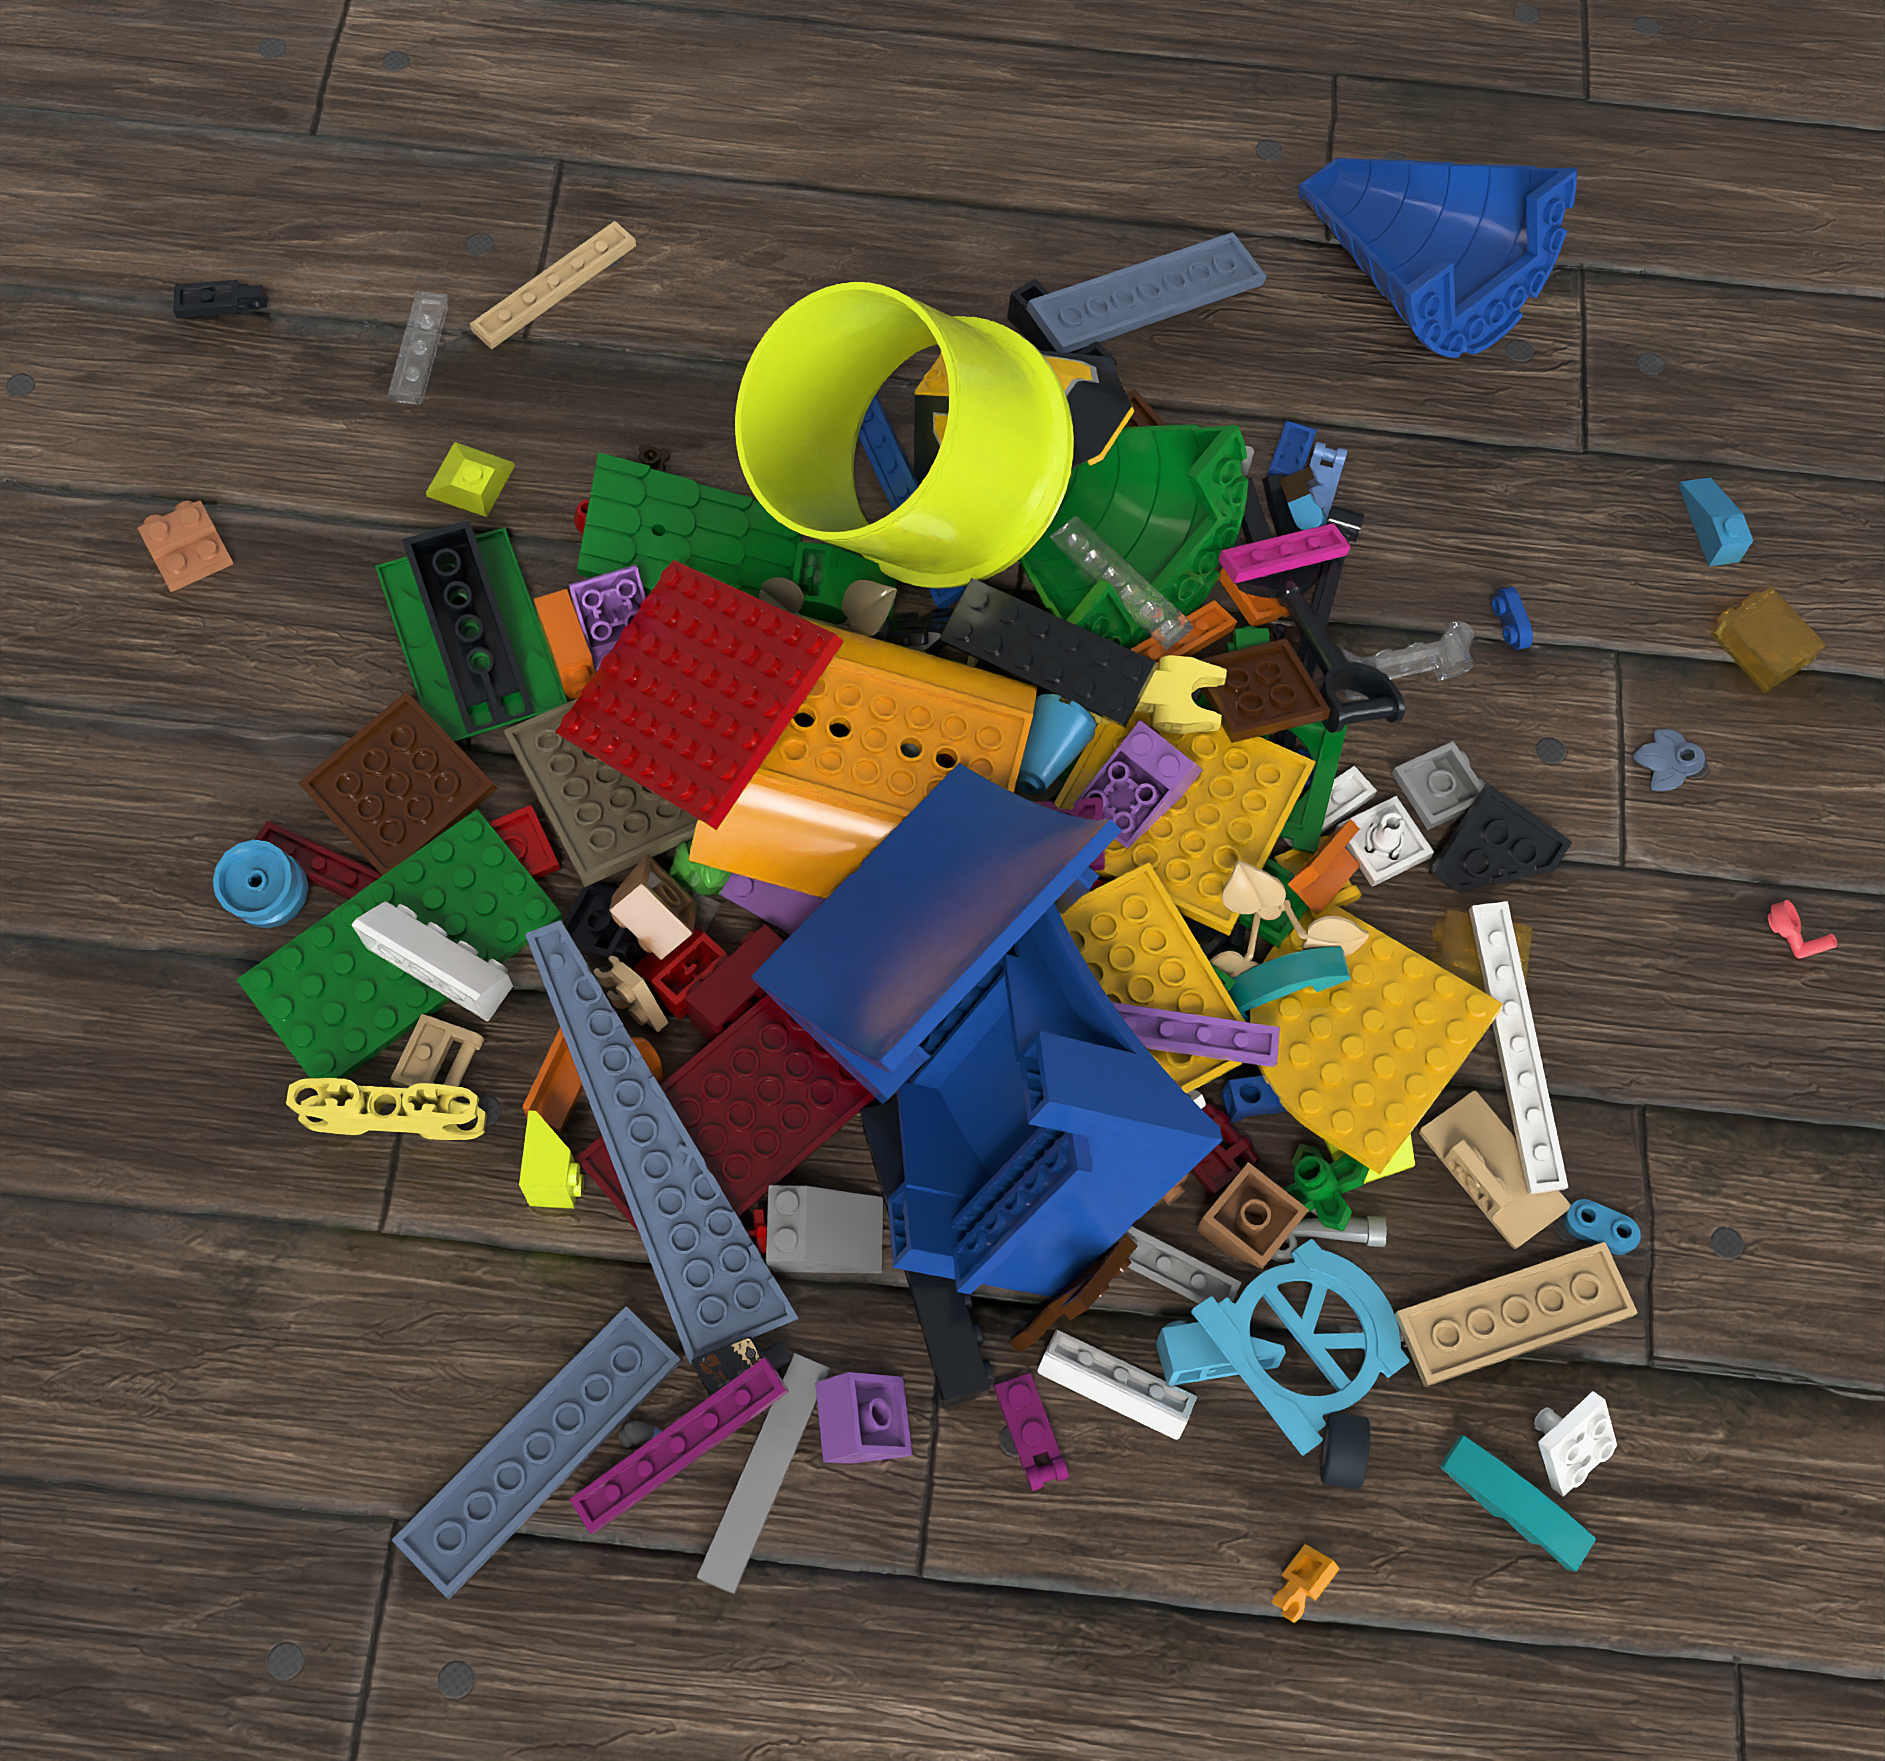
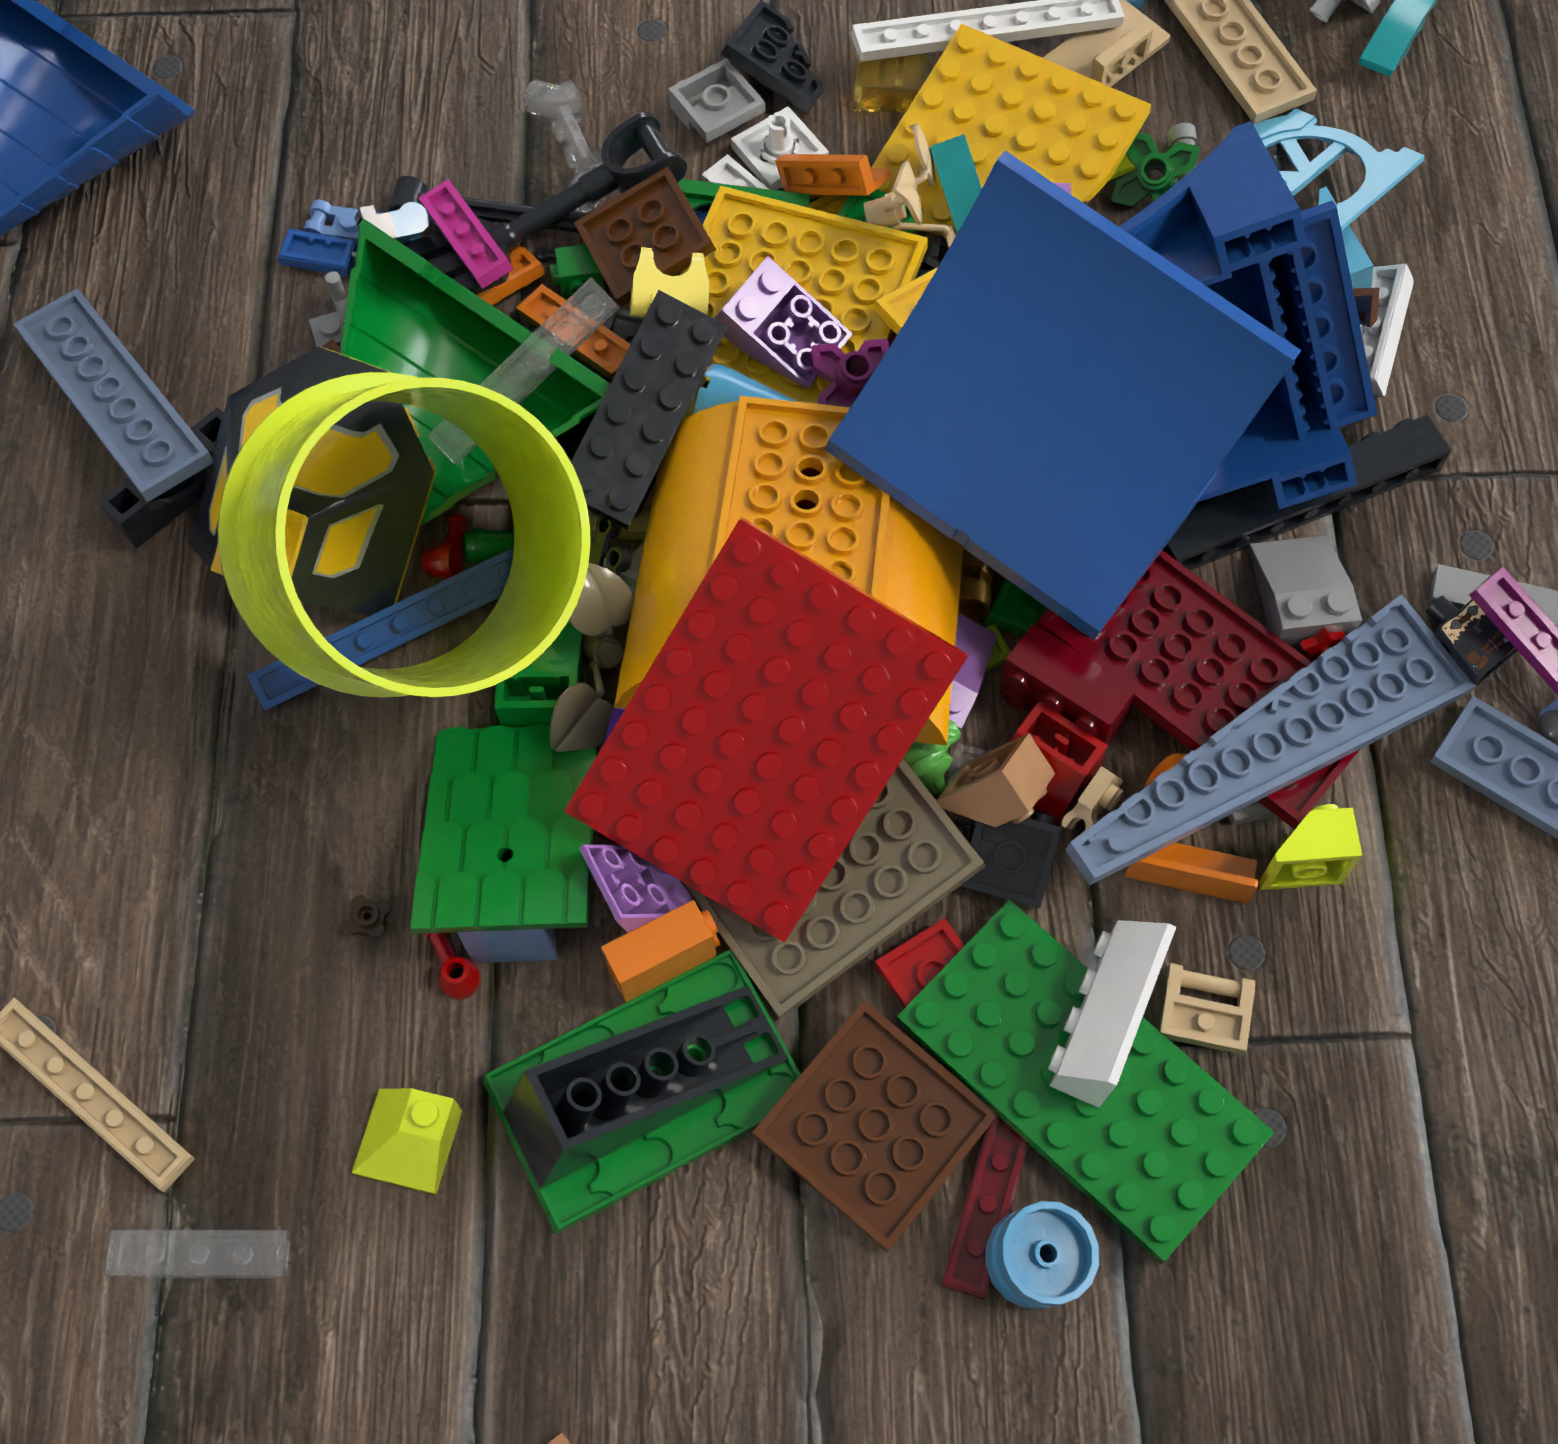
camera: 90 degrees left, 0 degrees up
(356, 1109) = (1299, 1071): light yellow piece -> none
(863, 1418) = (1482, 528): medium lavender slope -> none
(1030, 1430) = (1446, 391): magenta plate -> none
(1305, 1576) = (1509, 168): light orange plate -> none
(1345, 1450) = (1401, 129): black wheel -> none
(1513, 617) = (510, 54): blue plate -> none

